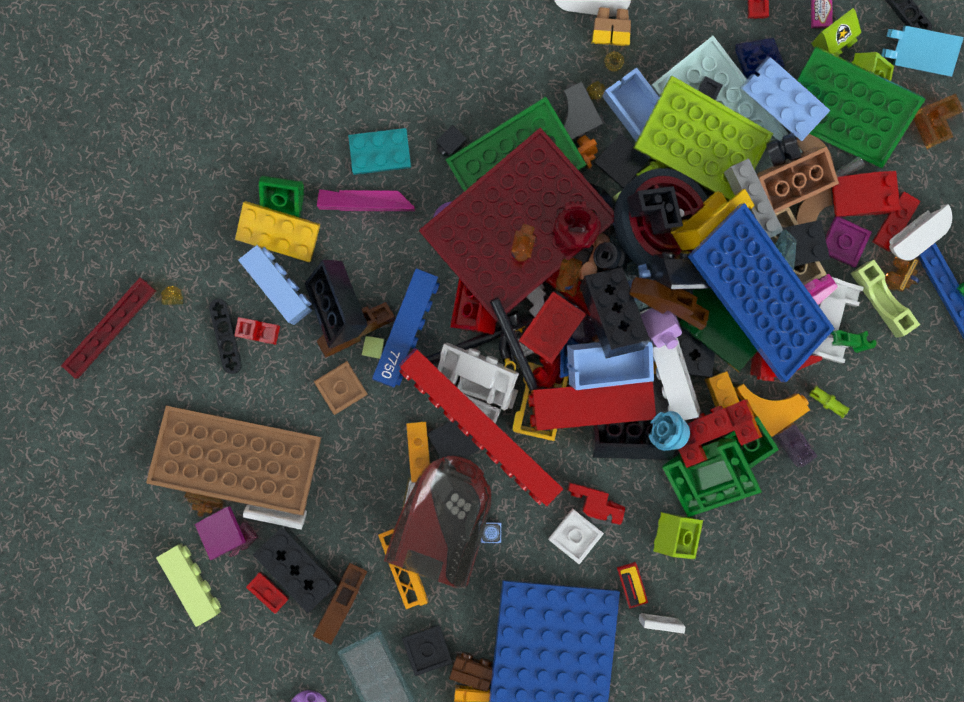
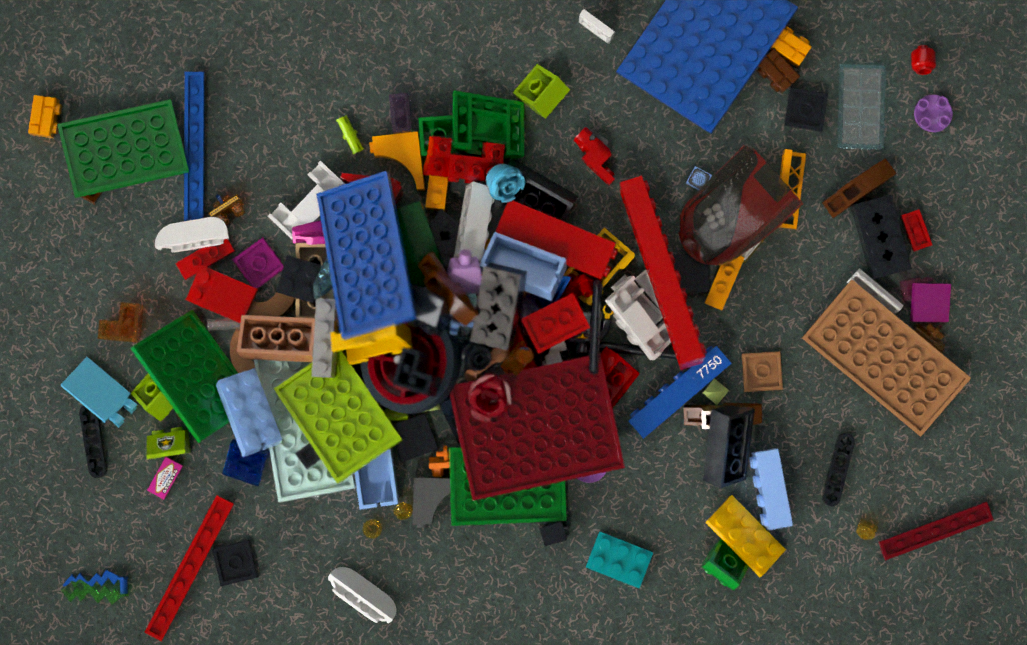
camera: 145 degrees left, 0 degrees up
(189, 585) = (979, 273): yellowish green brick -> none
(257, 331) = (808, 459): red slope -> none
(363, 201) = (656, 523): dark pink wedge -> none
(523, 243) = (543, 405): clear orange hips -> none
(575, 536) = (628, 137): white tile -> none
(620, 28) = (367, 562): hips -> none
(632, 585) = (602, 70): slope -> none
(784, 149) = (274, 368): black wheel -> none
(856, 341) = (299, 173): green piece -> none
(895, 315) = (255, 196): yellowish green arch -> none

